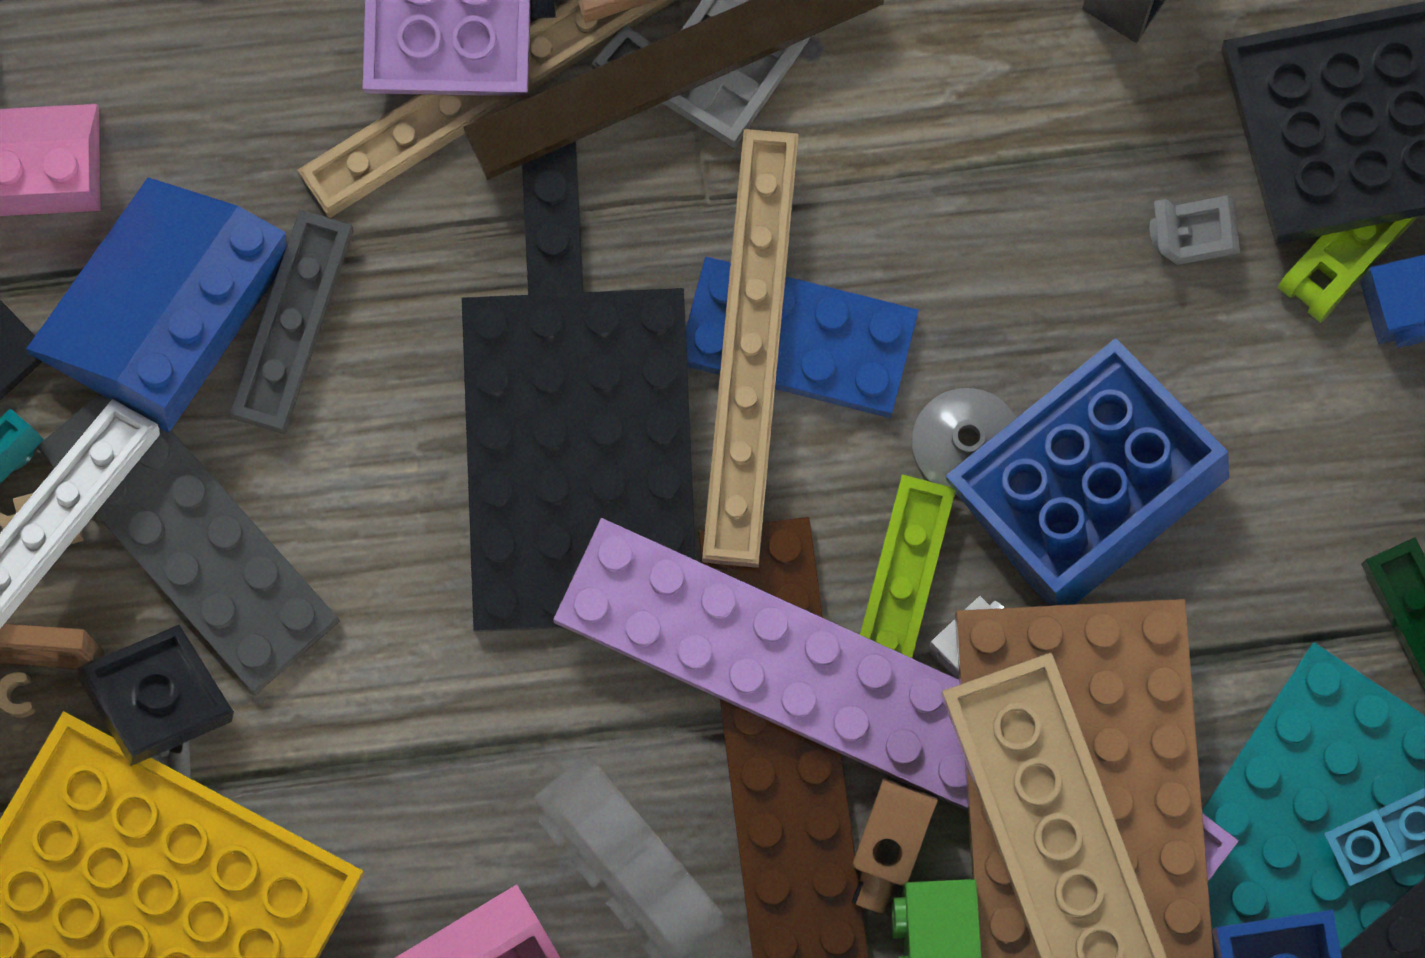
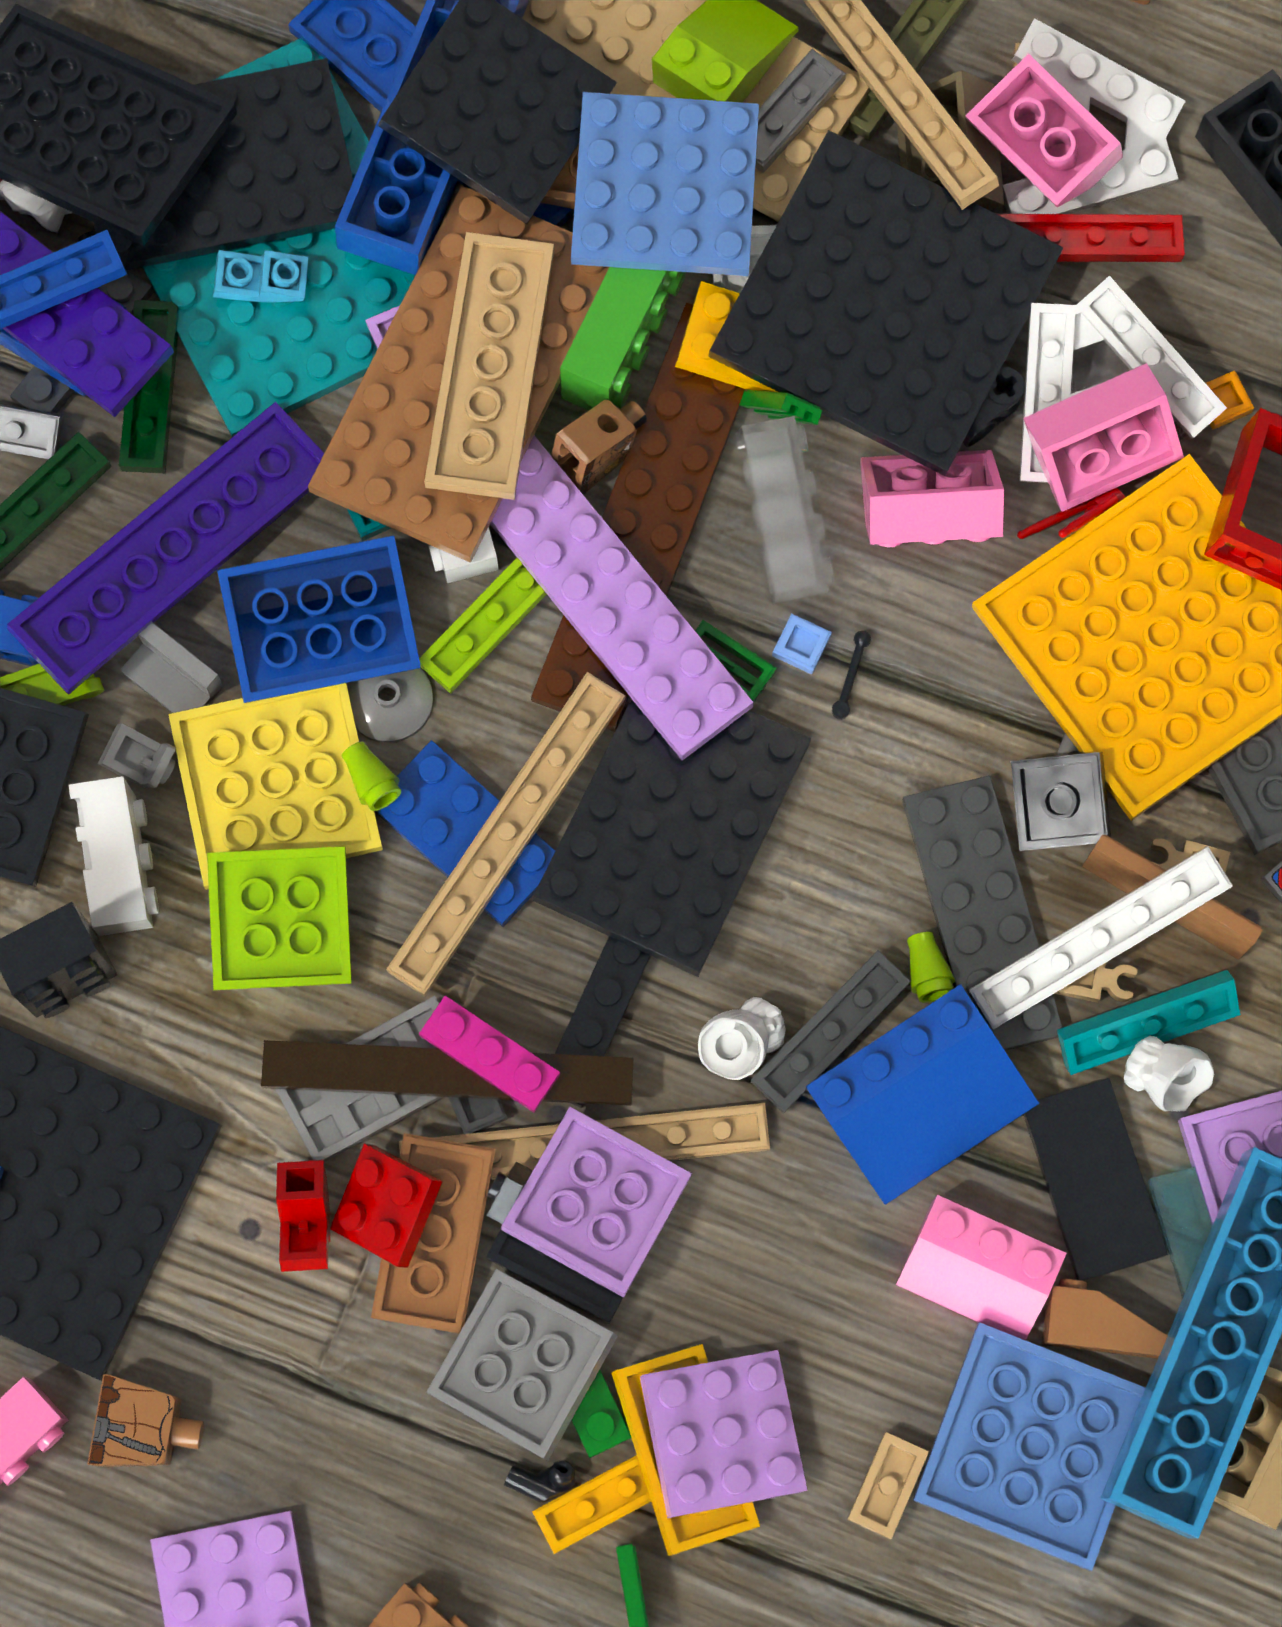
camera: 155 degrees left, 0 degrees up
(217, 440) = (928, 969): none -> lime cone
(383, 260) = (739, 1039): none -> white hair
(459, 688) = (841, 708): none -> black hinge
(540, 738) = (801, 644): none -> light blue tile
(604, 693) = (744, 654): none -> green tile
(638, 96) = (489, 1054): none -> dark pink plate
(930, 325) = (371, 777): none -> lime cone
(943, 135) = (279, 918): none -> lime plate
(1032, 277) = (272, 775): none -> light yellow plate
(1155, 110) = (114, 856): none -> white wedge
(1216, 342) = (171, 672): none -> light grey panel
(1297, 467) = (168, 549): none -> dark purple plate

